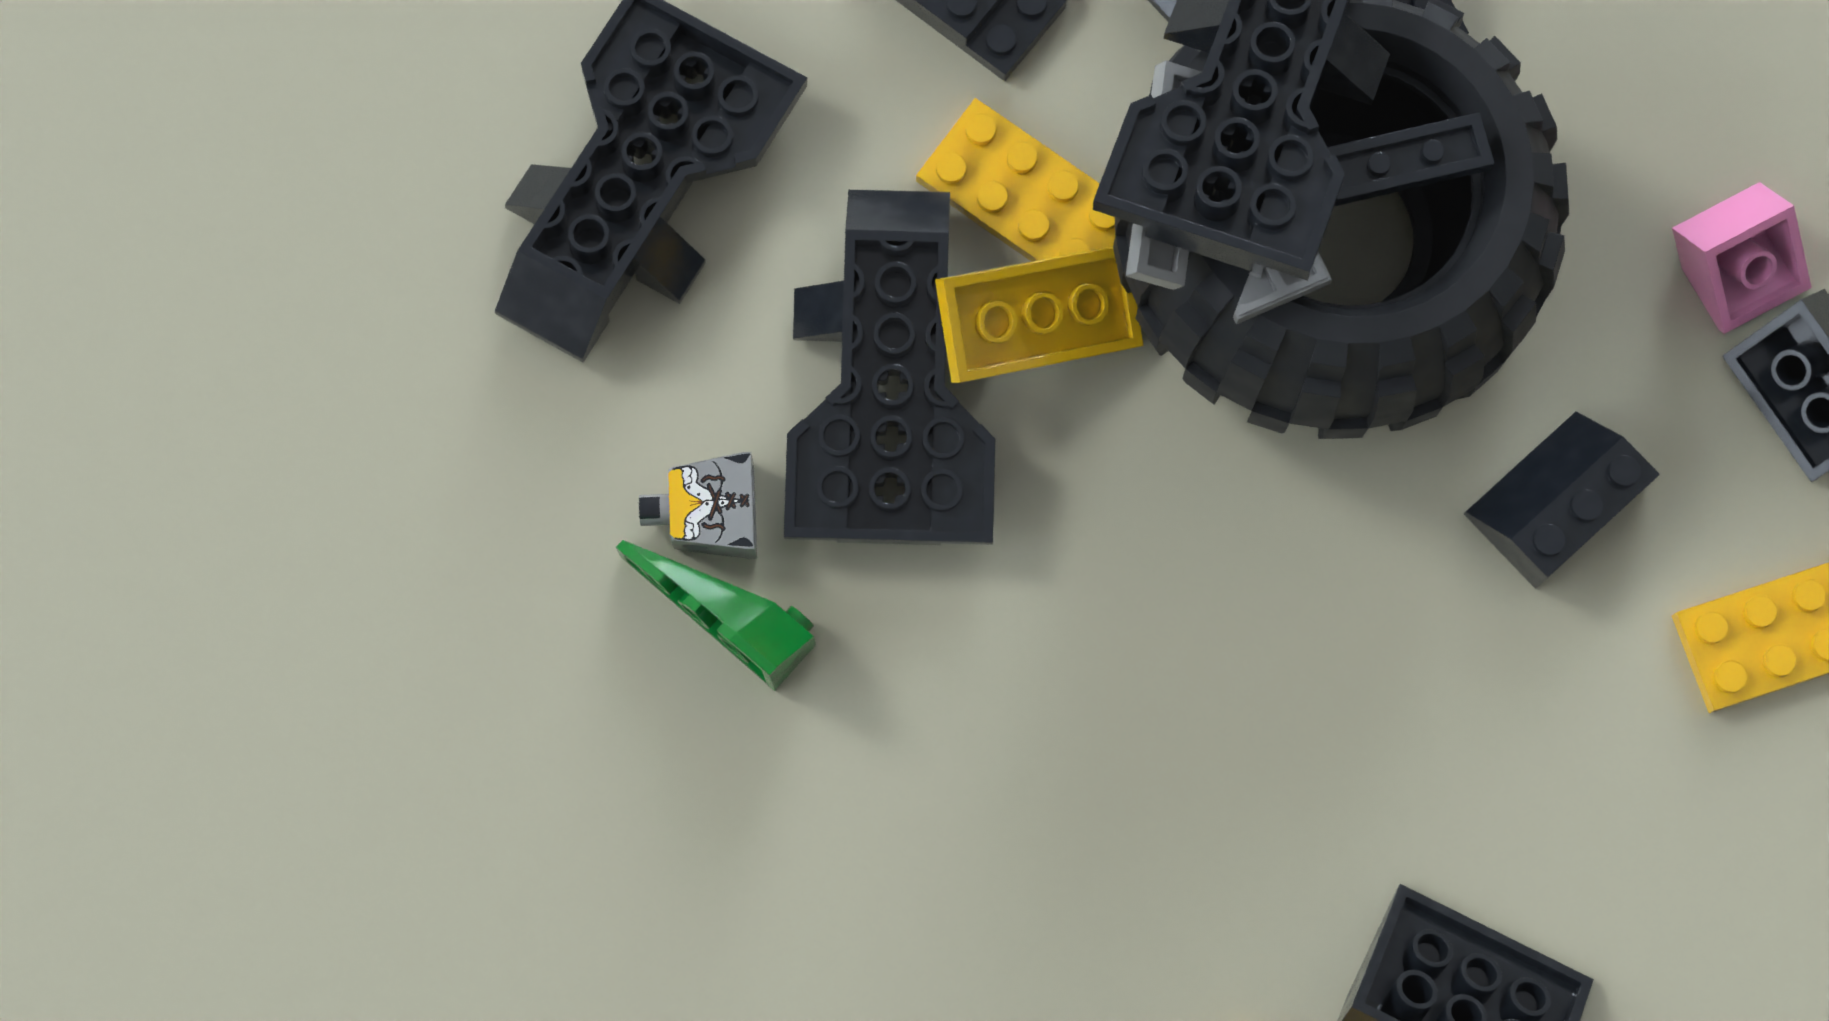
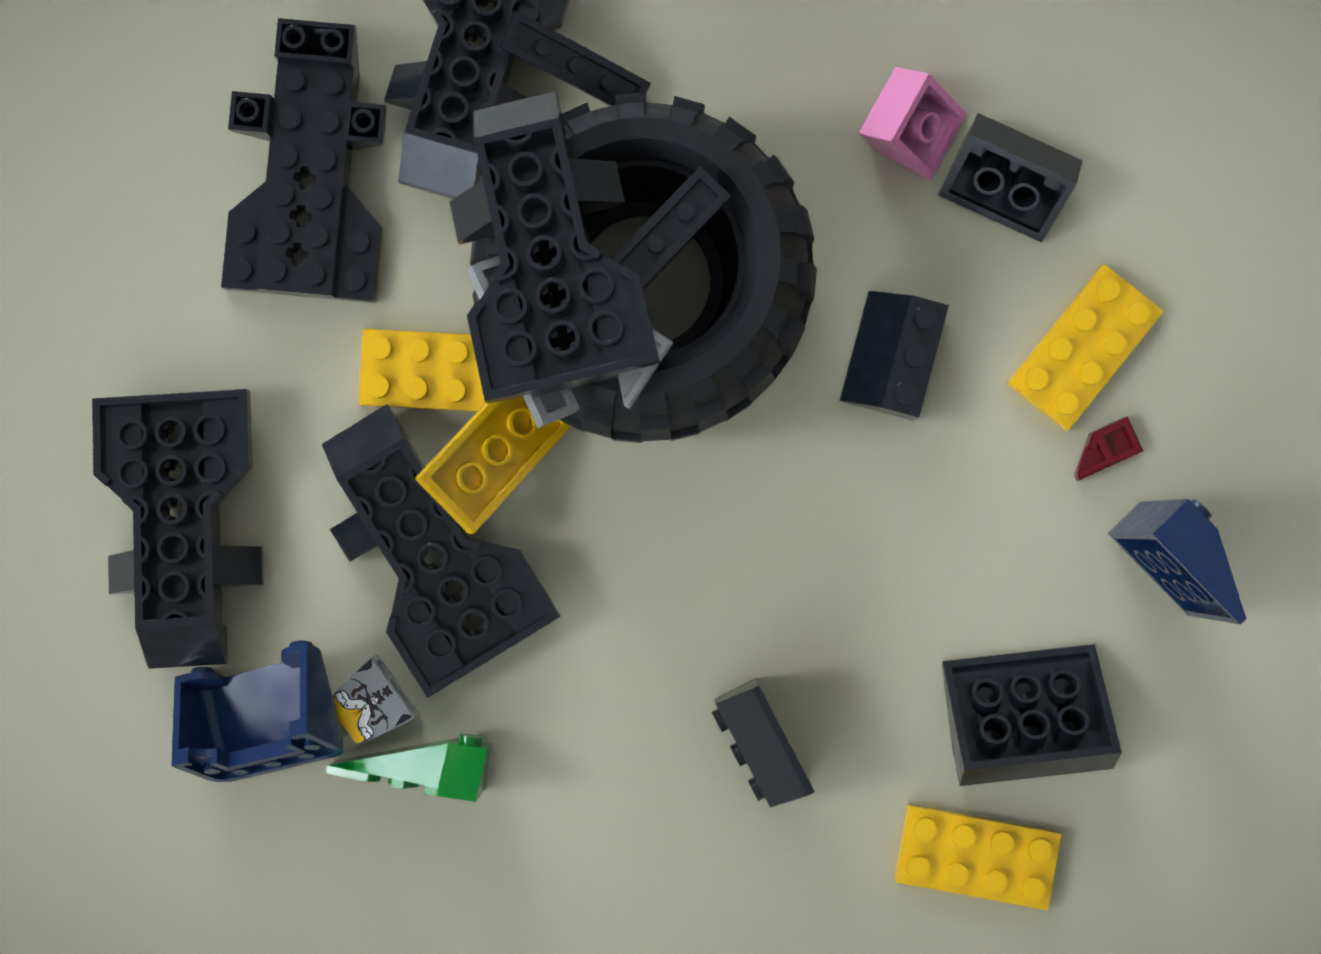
camera: 25 degrees left, 10 degrees up
(579, 442) = (255, 718): none -> dark blue windscreen
(1130, 834) = (761, 745): none -> black slope
(1749, 762) = (1107, 447): none -> dark red tile
(1759, 918) = (1182, 556): none -> dark blue slope

